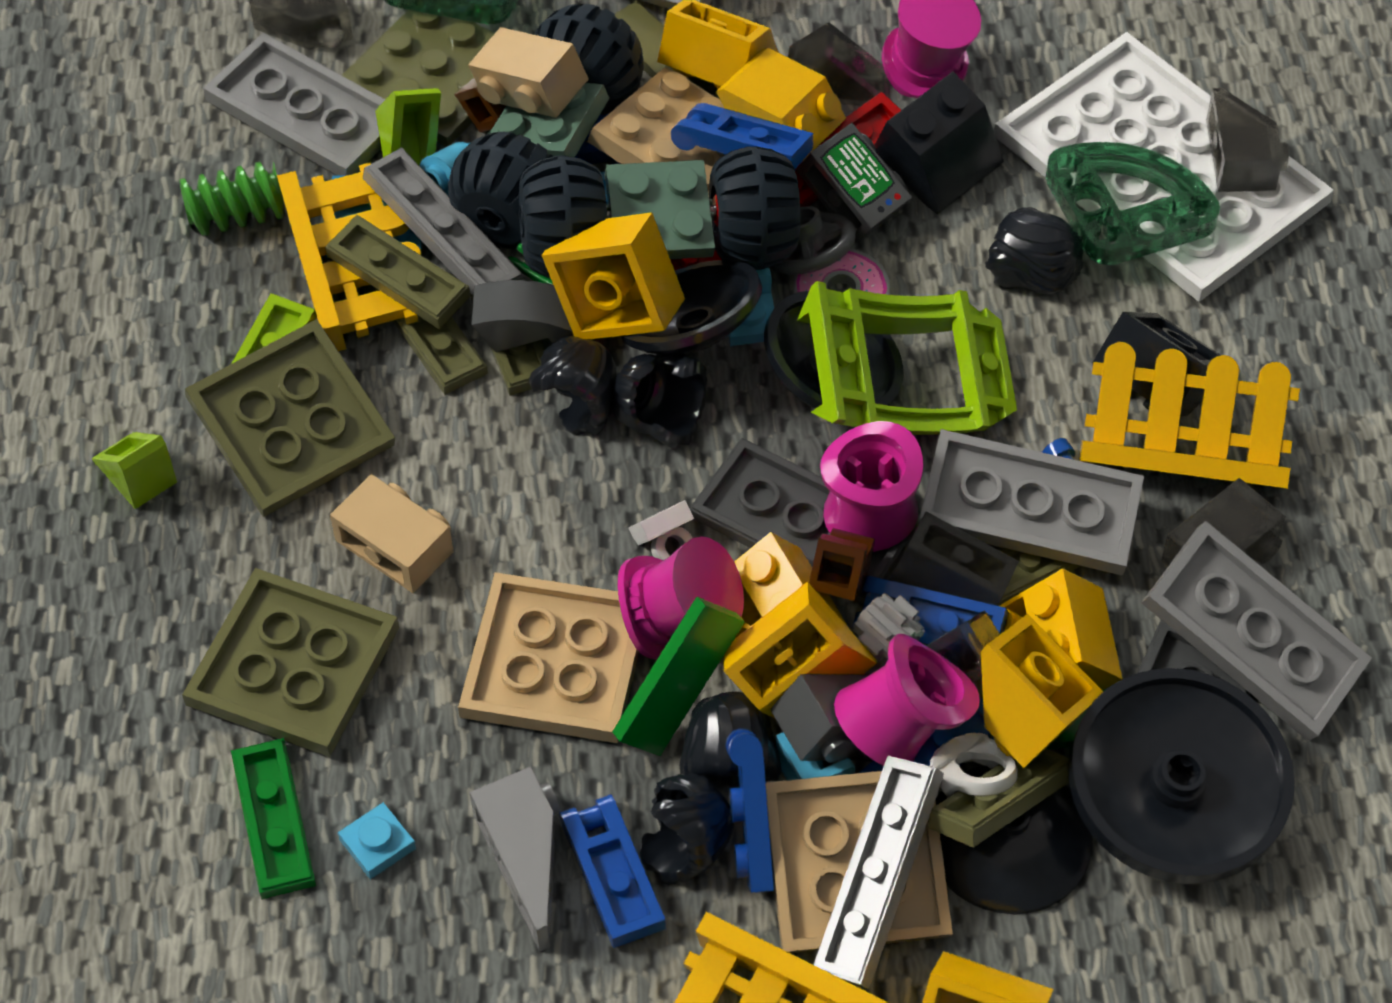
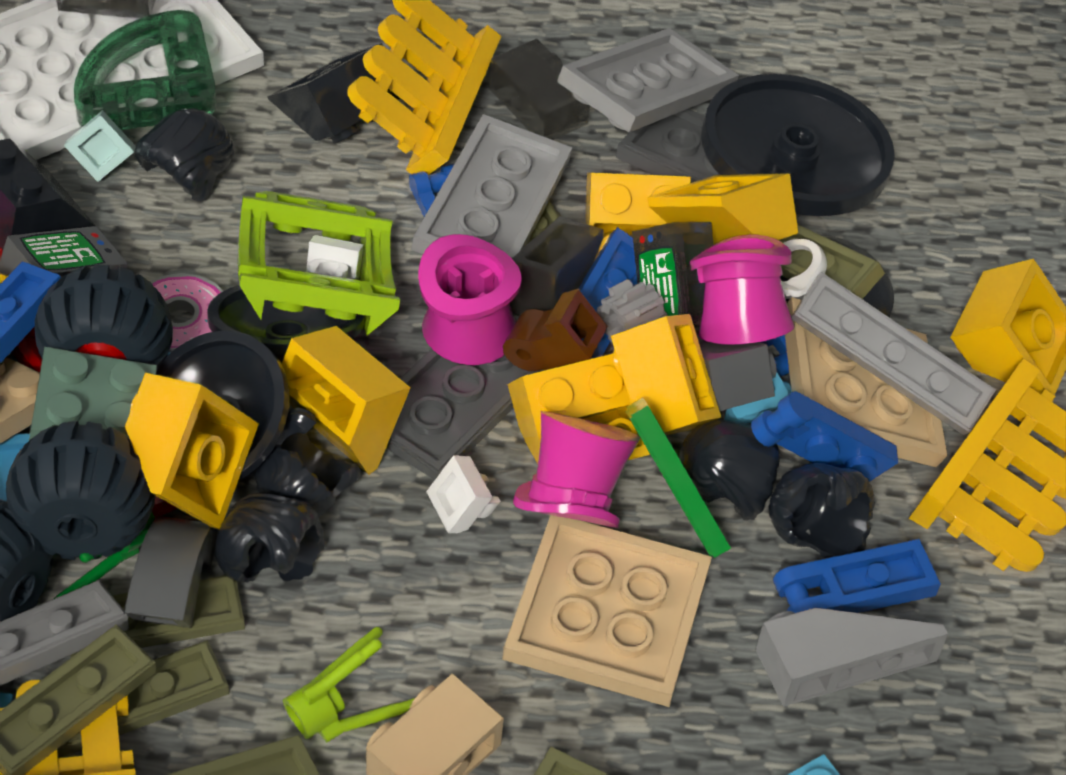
camera: 90 degrees left, 5 degrees down
(432, 451) = (318, 702): none -> lime plant
(729, 400) = (347, 392): none -> yellow slope
(918, 385) = (334, 257): none -> white tile
(1024, 183) = (100, 146): none -> light aqua plate

